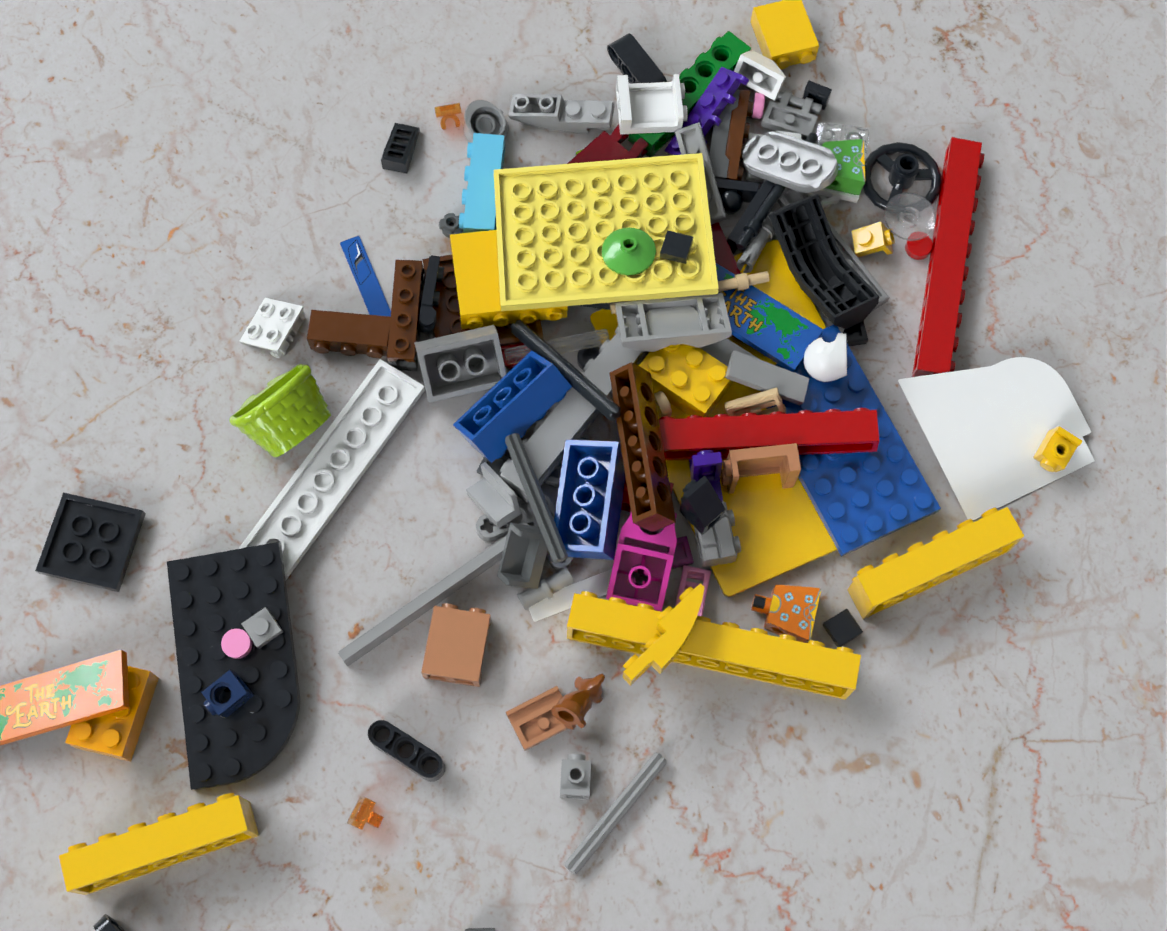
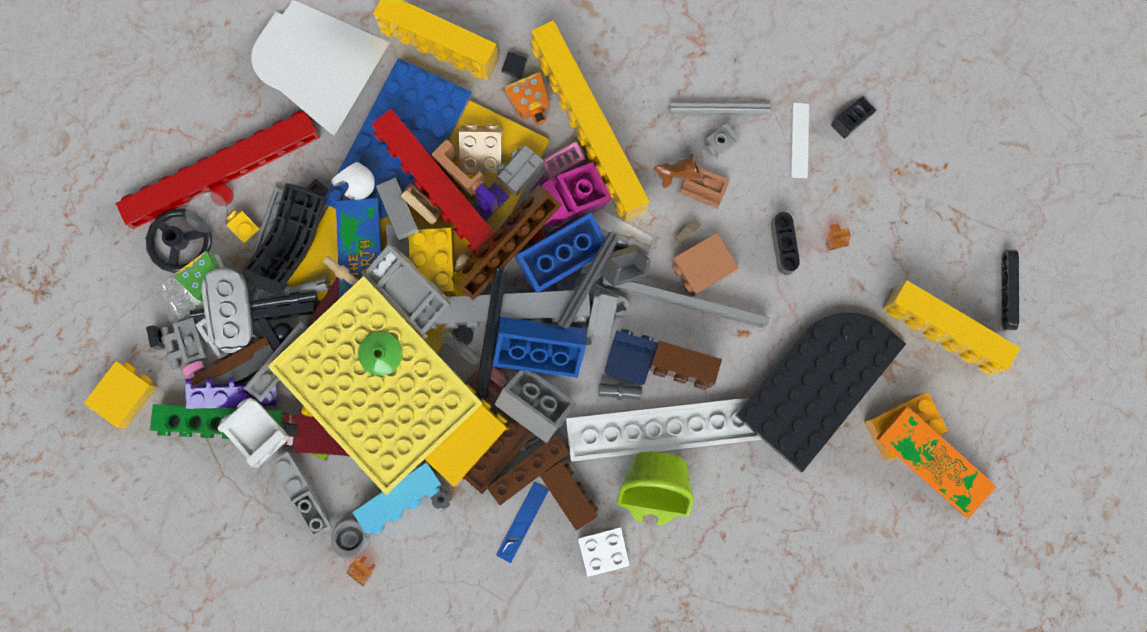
camera: 130 degrees left, 10 degrees up
(90, 542) = (827, 534): black plate -> none
(236, 643) = (814, 384): bright pink tile -> none
(239, 694) = (837, 364): dark blue brick -> none
(262, 627) = (793, 377): light grey plate -> none
(372, 533) = (685, 365): none -> reddish brown brick
(395, 163) = (426, 575): black slope -> none
(405, 458) = (619, 391): none -> dark grey pin
(429, 494) = (630, 357): none -> dark blue bracket
(430, 296) = (505, 462): black hinge -> none
(506, 876) = (800, 140): none -> white sticker
(507, 660) = (683, 235): none -> dark tan tile
(634, 61) = (223, 474): black beam -> none
(675, 628) = (602, 134): yellow slope -> none
(676, 247) = (354, 324): black tile -> none
(701, 505) = (515, 180): black slope -> none
(762, 73) = (169, 382): white slope -> none
(773, 515) = (480, 148): none -> tan bracket
(1056, 439) = (306, 19): yellow brick -> none

